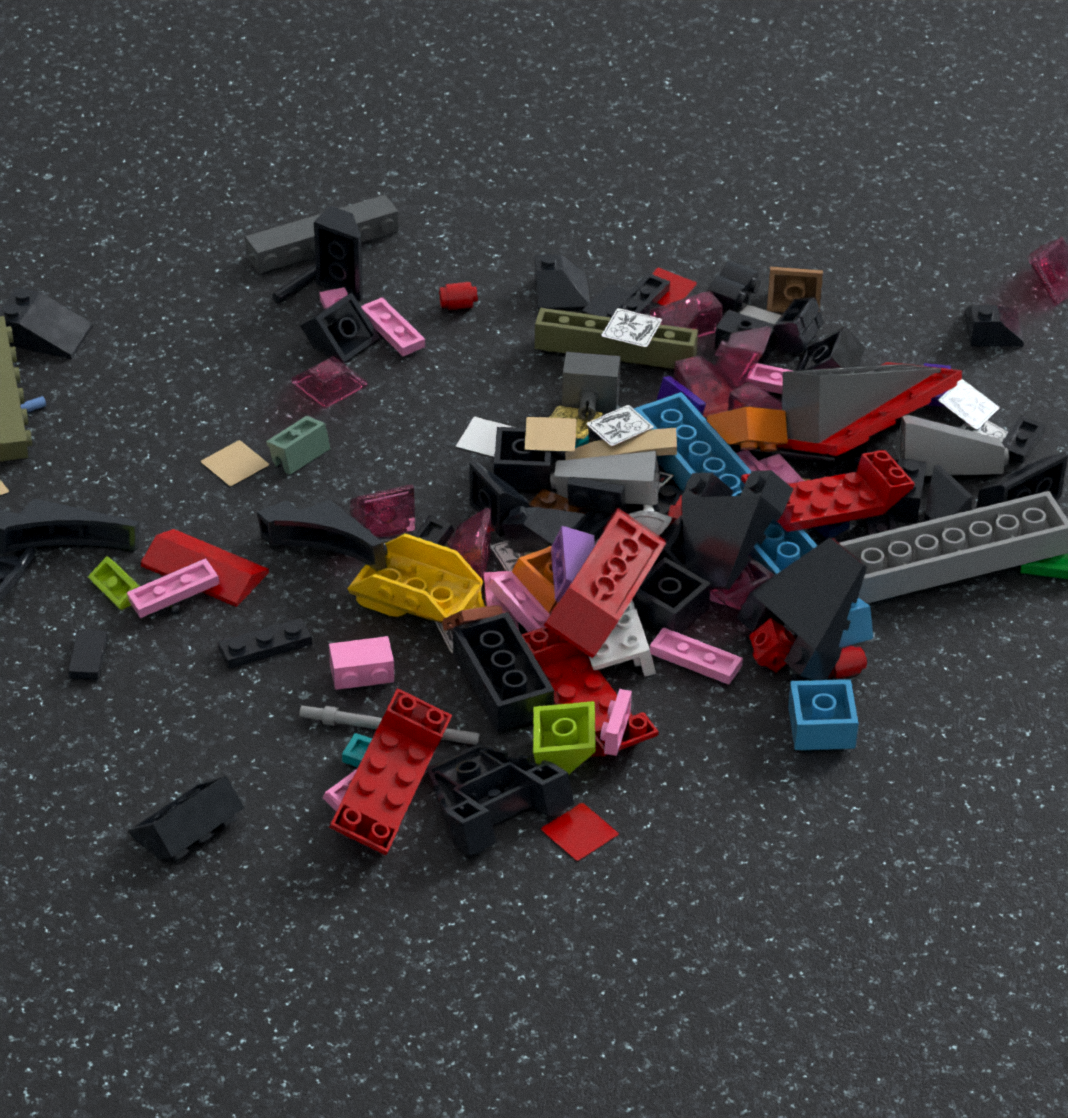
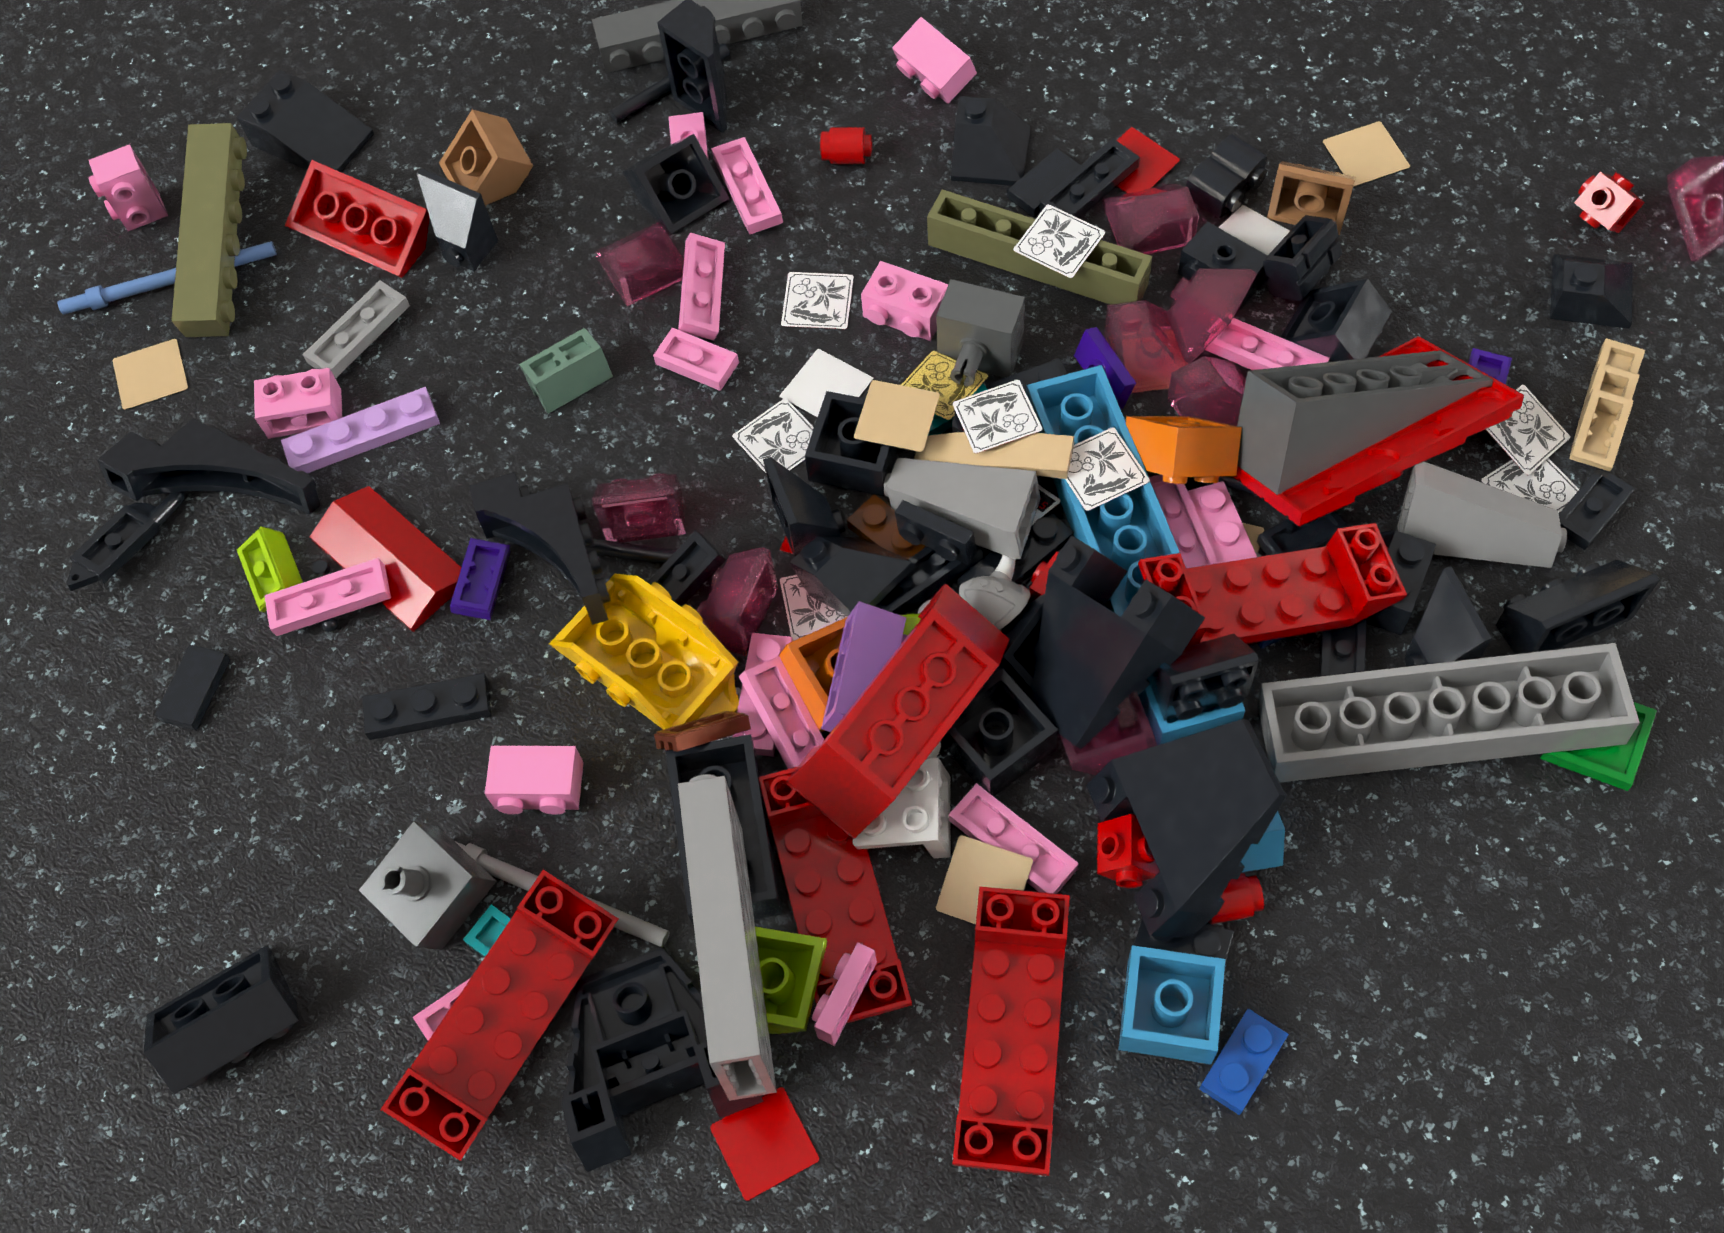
camera: 20 degrees right, 20 degrees up
(105, 485) = (296, 402): none -> bright pink brick
(106, 374) = (359, 219): none -> red slope
(130, 440) = (357, 329): none -> light grey plate
(160, 496) = (360, 431): none -> lavender plate
(186, 363) = (458, 220): none -> slope
(190, 331) = (486, 157): none -> medium nougat slope
(234, 463) = (483, 383): tan sticker -> none
(279, 567) = (480, 579): none -> dark purple plate
(309, 725) = (427, 886): none -> brick
(380, 387) = (701, 286): none -> bright pink plate
(390, 429) = (696, 359): none -> bright pink plate
(455, 468) = (776, 434): none -> white sticker
(464, 389) = (817, 300): none -> white sticker
(507, 239) = (934, 61): none -> bright pink brick
(530, 379) = (903, 300): none -> bright pink brick
(539, 690) = (726, 939): none -> light grey brick
(683, 679) = (975, 866): none -> tan sticker
(700, 446) = (1103, 469): none -> white sticker
(723, 737) = (1012, 1032): none -> red slope
(796, 536) = (1205, 677): none -> black slope
(832, 265) = (1366, 153): none -> tan sticker
(875, 744) = (1243, 1061): none -> blue plate
(992, 274) = (1608, 201): none -> brick
(1018, 383) = (1607, 405): none -> tan slope

